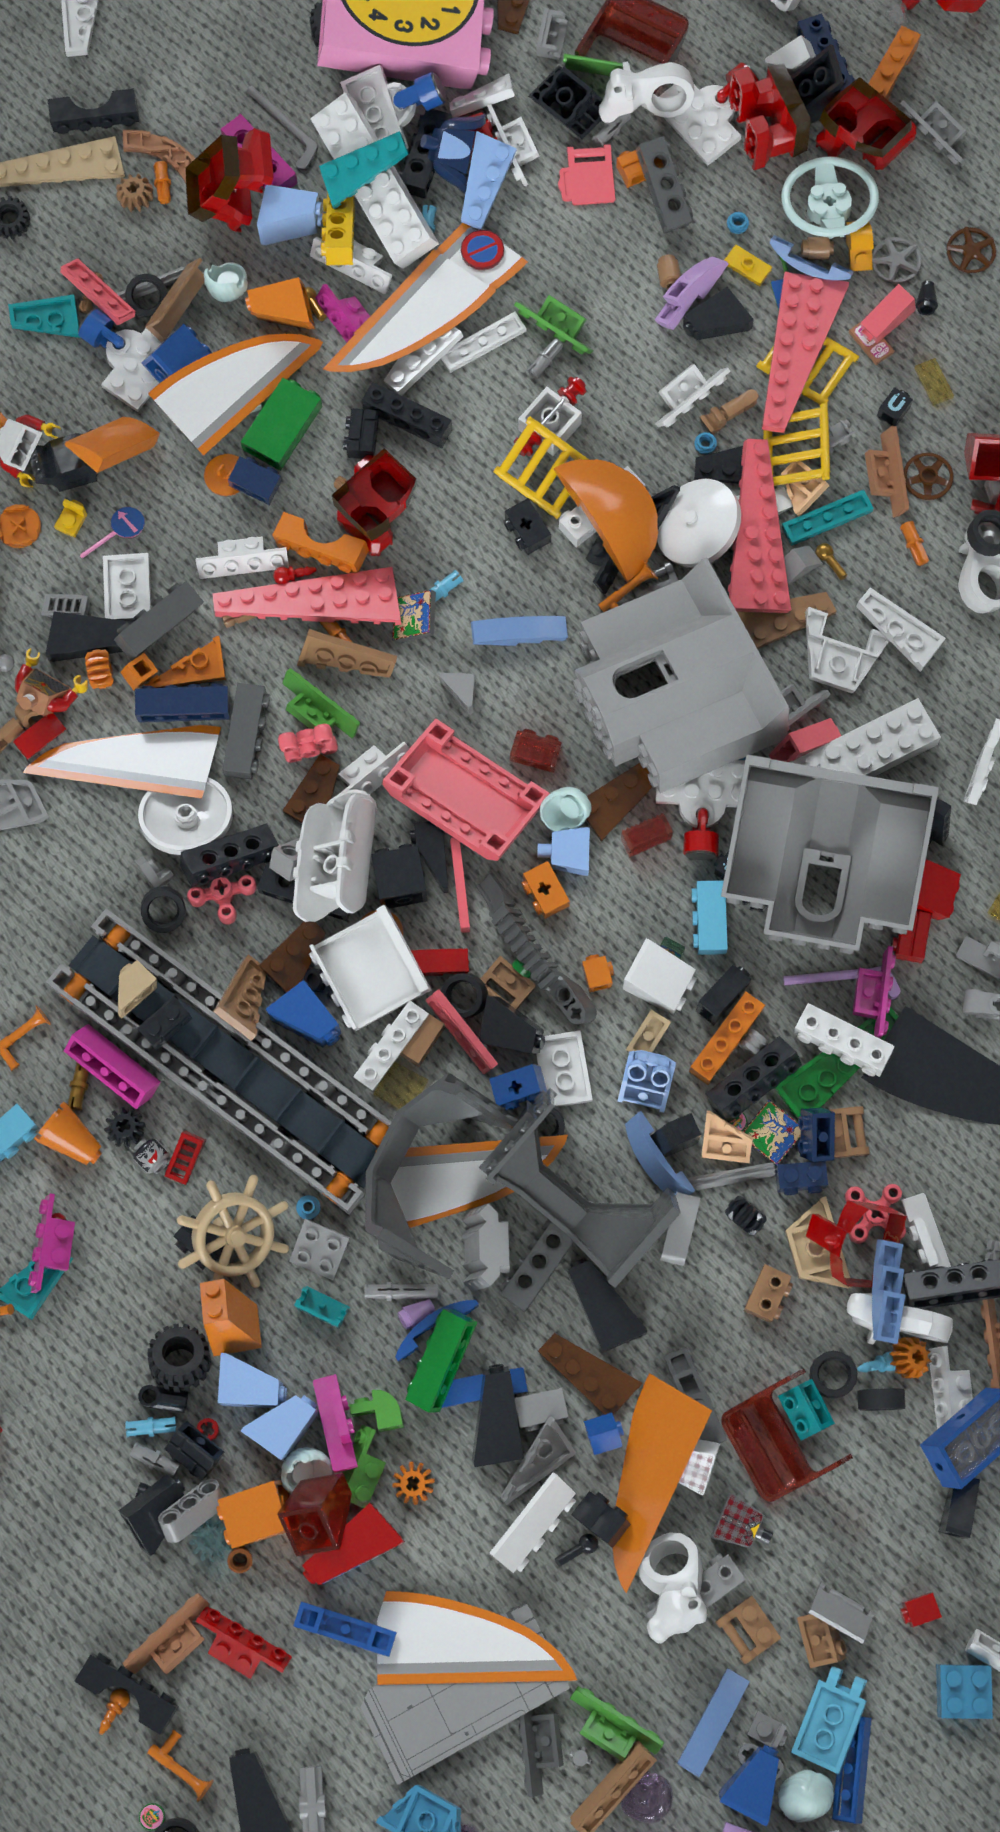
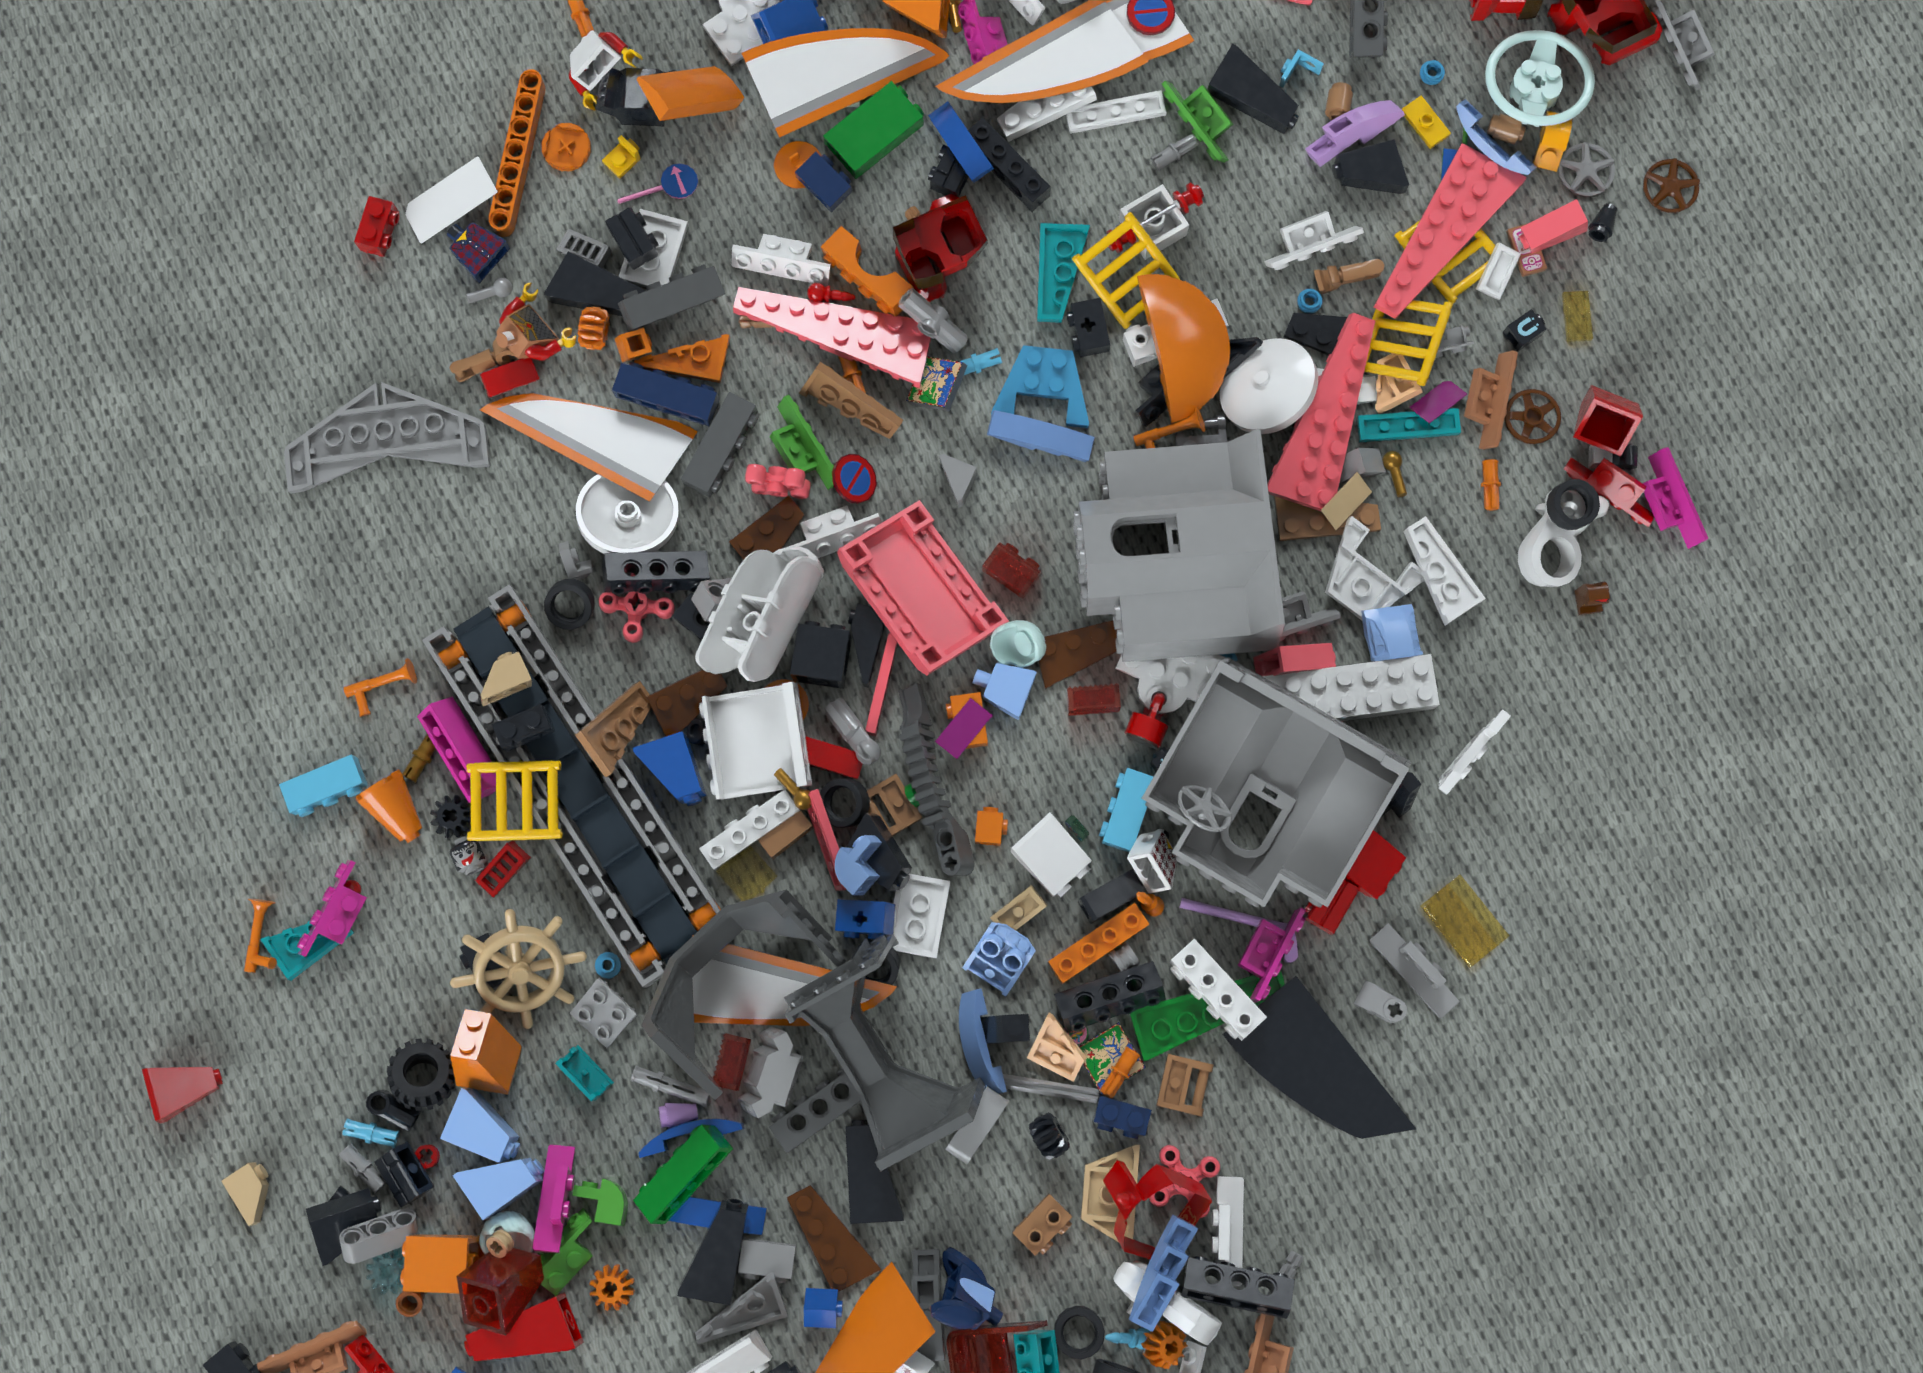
camera: 20 degrees right, 5 degrees up
(59, 1515) = (248, 1191): none -> tan slope
(106, 581) = (632, 238): none -> black brick
(156, 1067) = (501, 770): none -> yellow bar
(305, 1469) = (500, 1243): none -> tan bush
(361, 408) = (960, 142): none -> blue slope
(372, 720) = (854, 478): none -> piece
(392, 564) = (933, 320): none -> light grey piece
(426, 1001) = (801, 796): none -> pearl gold bar
(447, 1247) = (731, 1061): none -> clear red brick
(450, 932) = (853, 731): none -> light grey piece
(481, 486) = (1057, 268): none -> teal wing
(491, 1041) = (852, 866): none -> light blue brick
(503, 579) = (1045, 375): none -> dark azure wing
(544, 896) = (963, 728): none -> magenta sticker
(592, 287) = (1252, 91): none -> black slope
(623, 248) = (1299, 58): none -> medium azure bracket
(724, 1375) = (966, 1295): none -> dark blue torso
(744, 946) = (1154, 860): none -> white torso
(759, 989) = (1150, 903): none -> orange bar
(776, 887) = (1204, 808): none -> light grey wheel
(786, 1140) = (1119, 1072): none -> orange axle
(799, 596) = (1346, 501): none -> tan sticker
(817, 1134) = (1153, 1079): dark blue brick -> none
(844, 489) = (1438, 401): none -> magenta sticker
(854, 366) = (1498, 271): none -> white tile
(877, 692) = (1391, 632): none -> light blue slope

